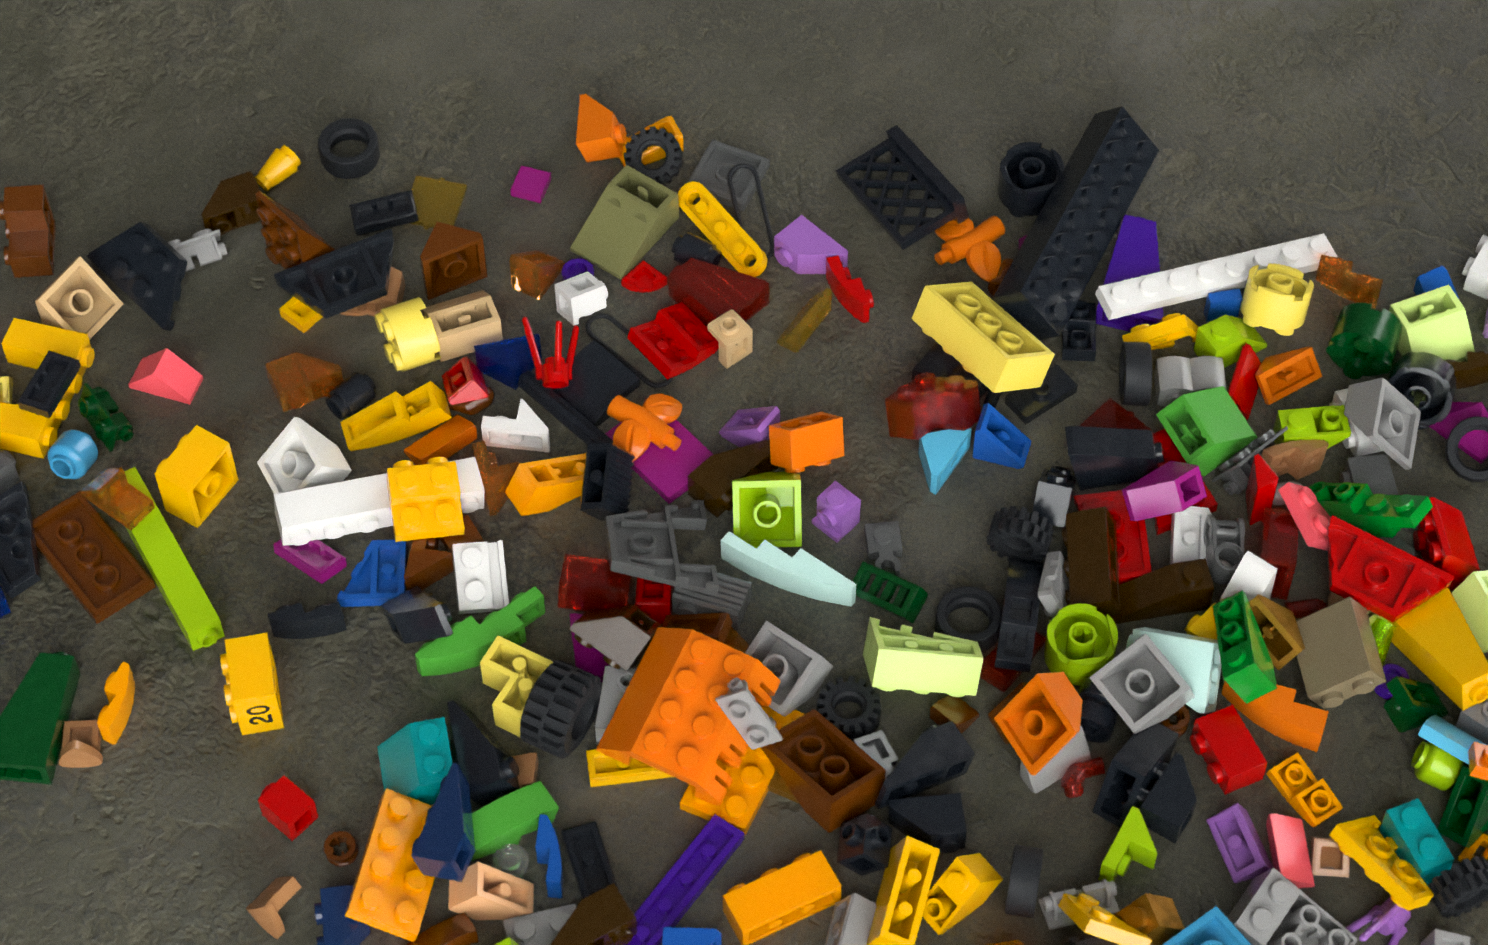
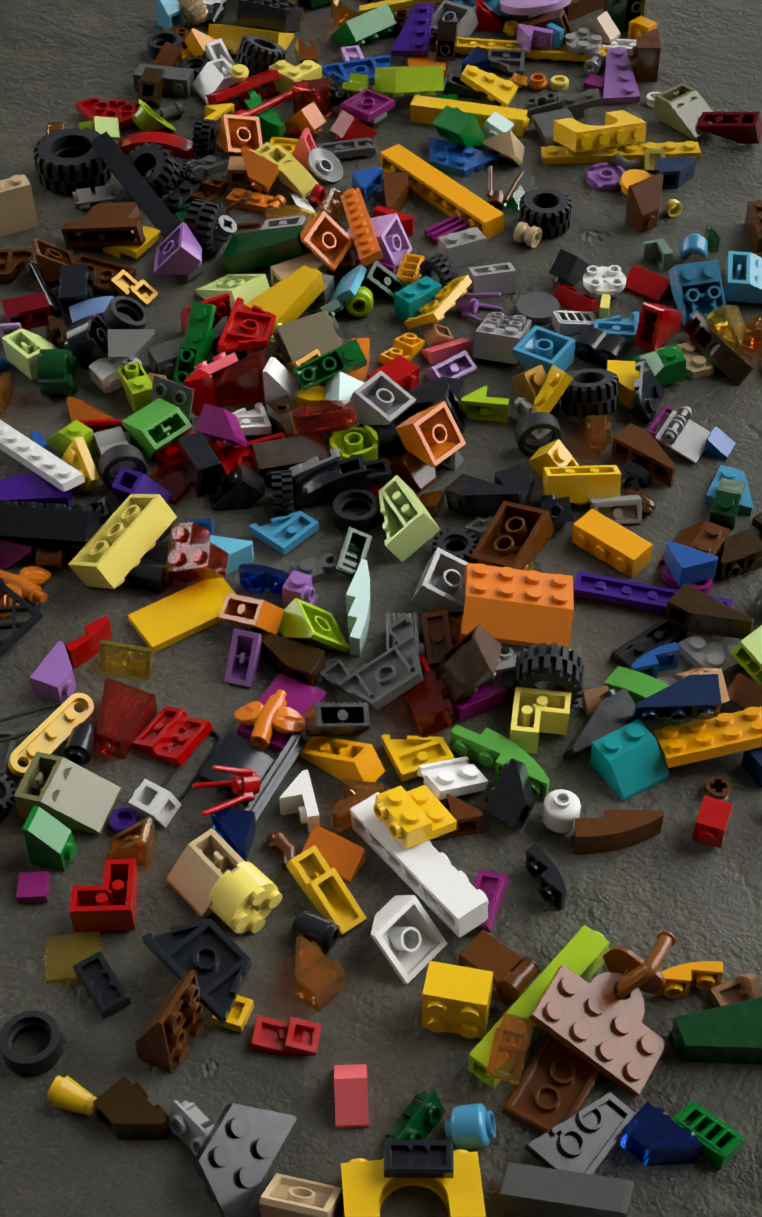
camera: 110 degrees left, 10 degrees down
(100, 592) = (601, 1025): none -> plate
(220, 534) = (509, 969): none -> reddish brown hinge
(252, 684) = (628, 876): yellow brick -> none
(253, 344) = (285, 1038): none -> red slope
(333, 708) = (615, 830): none -> reddish brown slope
(377, 576) = (480, 847): blue wing -> none
(379, 663) = (560, 810): none -> white head
(452, 259) = (153, 898): reddish brown slope -> none
(464, 382) = (276, 848): red slope -> none
(470, 210) = (107, 905): none -> red brick
(535, 556) = (413, 752): none -> yellow wing
(567, 193) = (48, 840): none -> green slope
(644, 279) = (115, 774): red tile -> none
(733, 337) = (166, 689): tan bracket -> none
(748, 715) = (508, 557): light grey hinge -> none
(857, 385) = (181, 613): none -> yellow tile
(883, 477) = (261, 577): none -> clear blue slope
(960, 532) = (286, 532): none -> dark azure wing
(1088, 386) = (135, 482): none -> dark purple slope
(1128, 599) = (323, 416): none -> clear red slope
(1223, 542) = (252, 398): dark grey piece -> none
(1276, 298) = (33, 413): light yellow brick -> none

